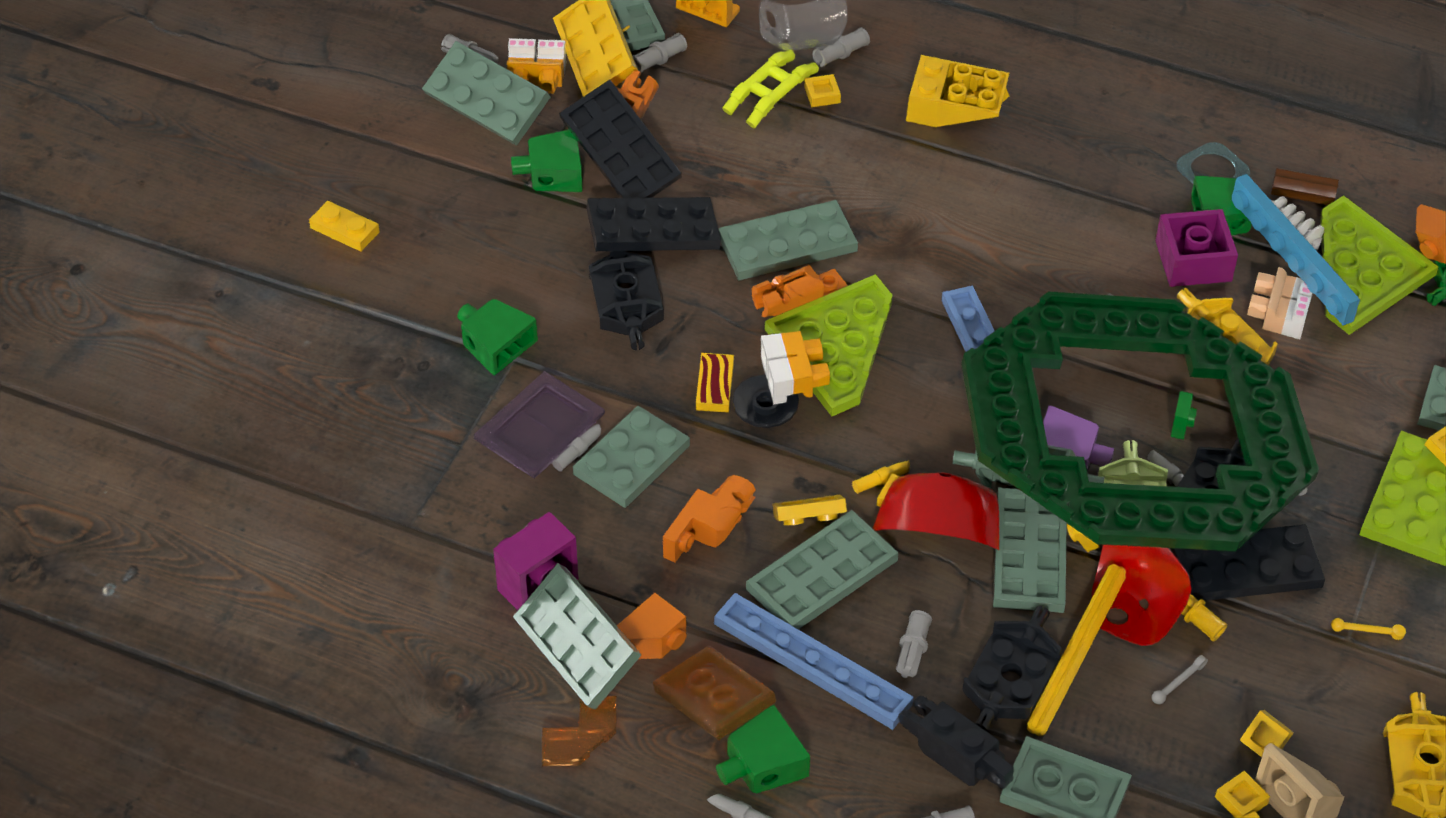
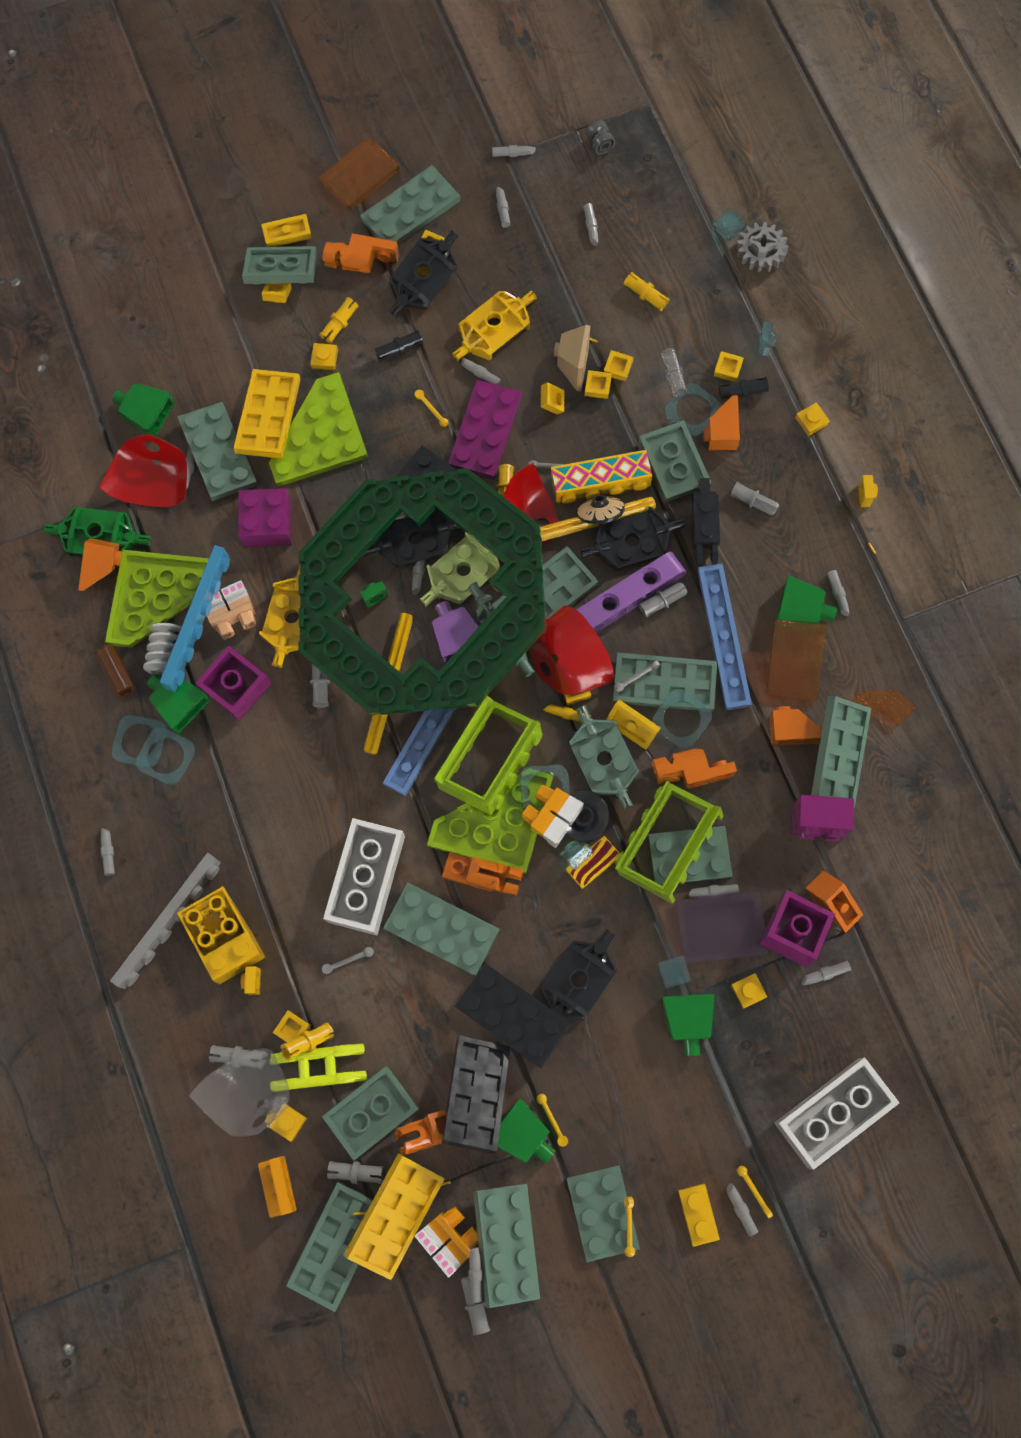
camera: 130 degrees left, 25 degrees up
(284, 269) = (742, 1171): none -> yellow hinge
(289, 360) = (836, 1113): none -> white brick
(308, 253) = (741, 1210): none -> light grey piece
(379, 155) = (629, 1203): none -> yellow hinge
(401, 468) = (826, 973): none -> light grey piece
(428, 171) = (601, 1212): none -> sand green plate
(453, 518) = (834, 896): none -> orange slope
(462, 399) = (749, 991): none -> yellow plate
(466, 459) = (797, 929): none -> magenta brick
(489, 52) = (475, 1275): none -> light grey piece
(514, 191) = (562, 1140): none -> yellow hinge
(546, 356) = (674, 972): none -> clear light blue plate
(663, 485) = (690, 852): none -> lime window
(692, 91) = (370, 1113): none -> sand green plate
(736, 366) = (576, 853): none -> clear light blue plate
(749, 45) = (288, 1123): none -> yellow plate
(750, 571) = (705, 715): none -> clear light blue piece
(778, 451) = (600, 737): none -> sand green plate
(798, 84) = (307, 1041): none -> yellow pin
(846, 150) = (327, 968): none -> light grey hinge
(854, 384) = (528, 773): none -> clear light blue piece
(858, 520) = (620, 686): none -> light grey hinge
(879, 383) = (508, 773): none -> lime window
(893, 91) = (251, 980): none -> yellow plate
(897, 210) = (364, 876): none -> white brick
(951, 615) = (632, 591): none -> medium lavender beam
(1007, 60) = (160, 930): none -> light grey plate
(1075, 664) = (600, 509): none -> dish
(1090, 385) = (395, 659): none -> yellow axle
(1118, 699) = (601, 476): none -> yellow brick
(1124, 84) = (107, 852): none -> light grey piece
(1165, 194) = (158, 734): none -> clear light blue piece
(1291, 655) = (485, 429): none -> magenta plate
(1364, 391) = (265, 517): none -> magenta brick
(1371, 705) = (480, 372): none -> light grey piece

